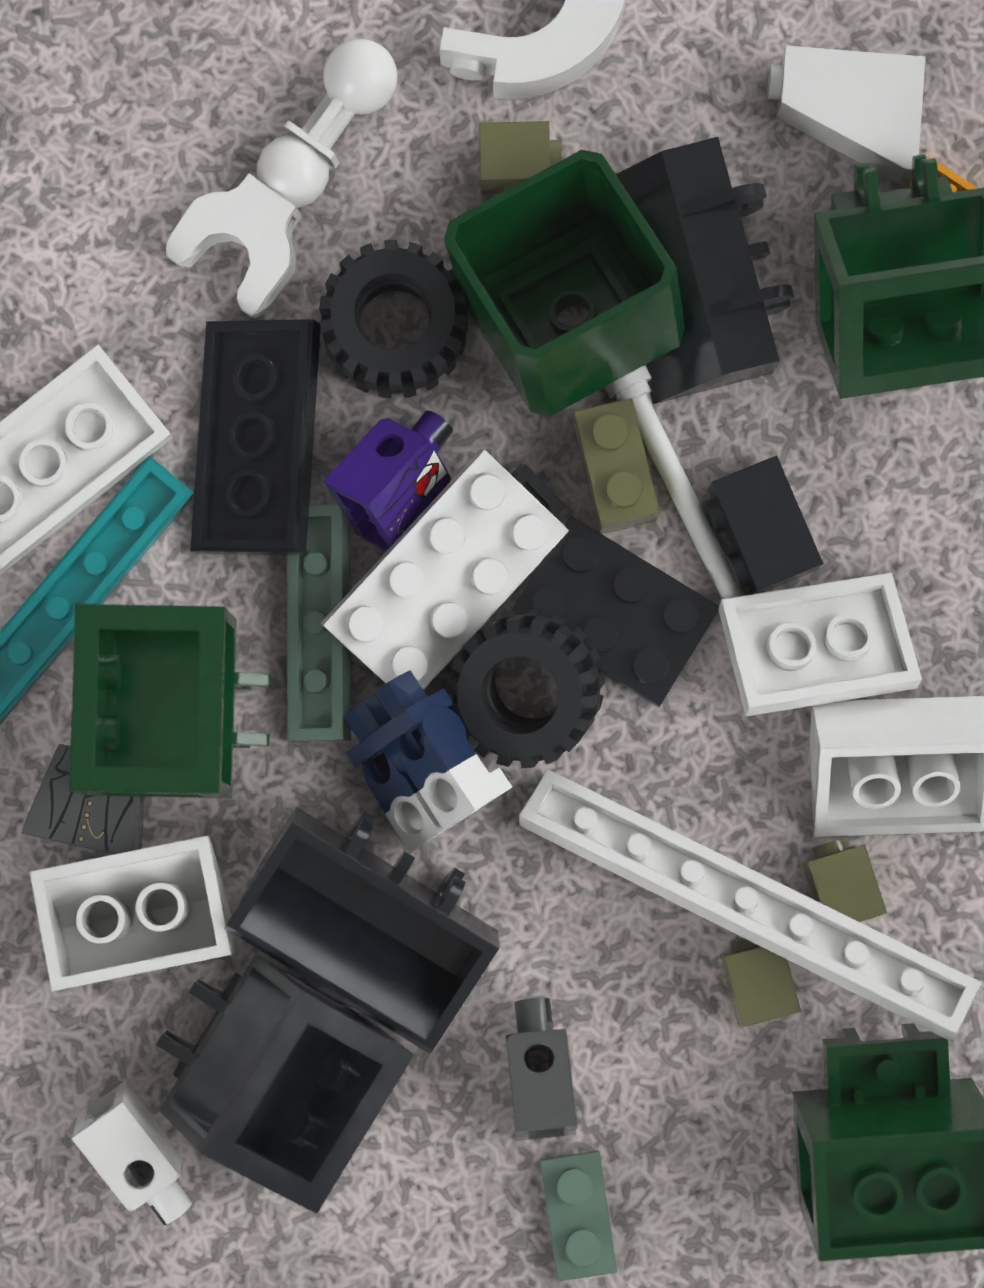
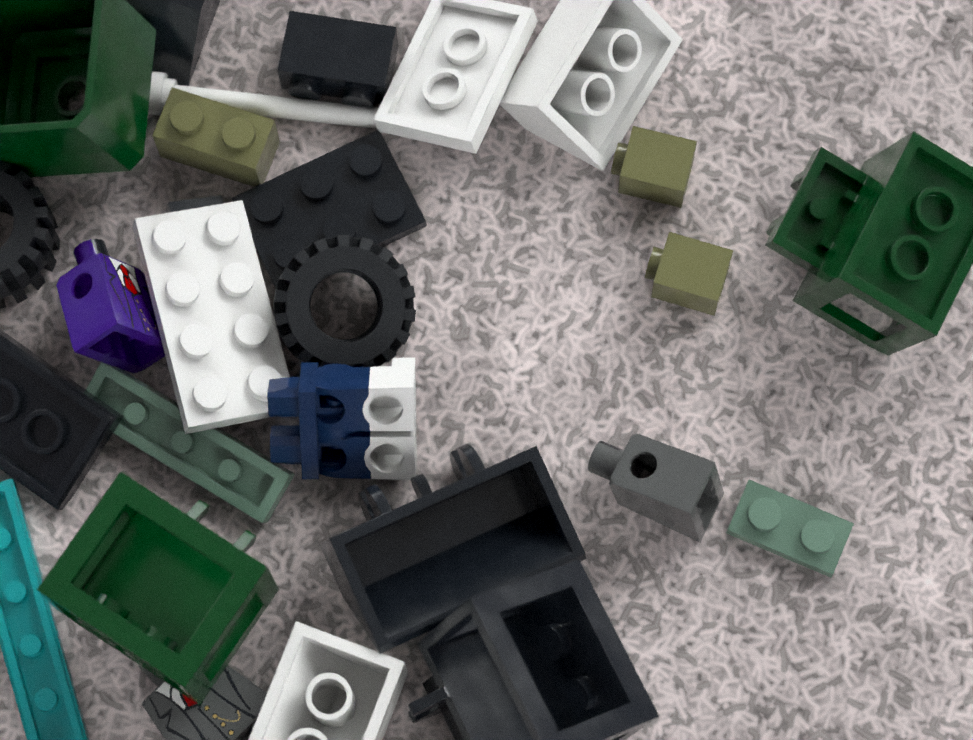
camera: 55 degrees left, 10 degrees down
(751, 905) = (622, 237): white plate -> none

